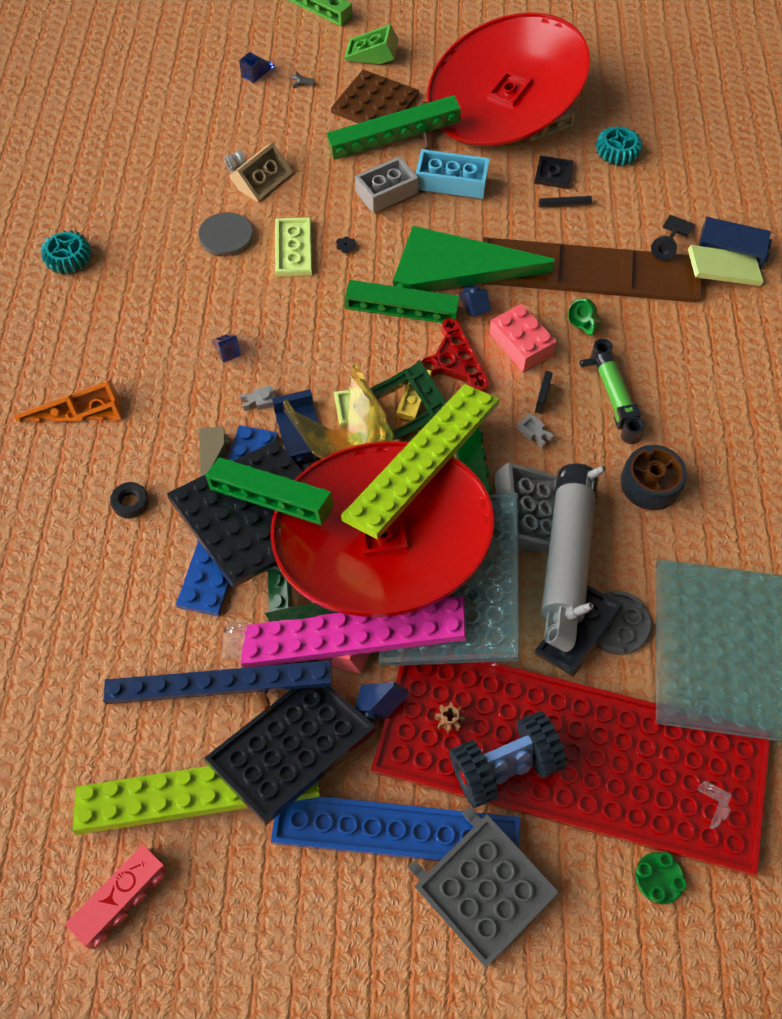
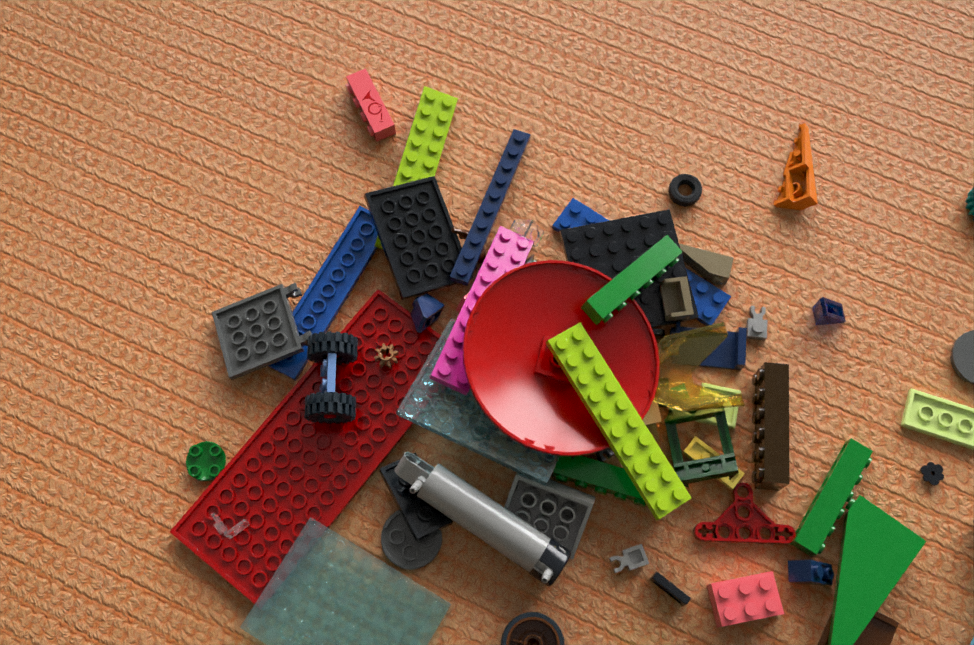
camera: 115 degrees right, 10 degrees up
(270, 453) = (676, 298): none -> dark tan panel
(369, 350) = (771, 427): none -> dark brown brick

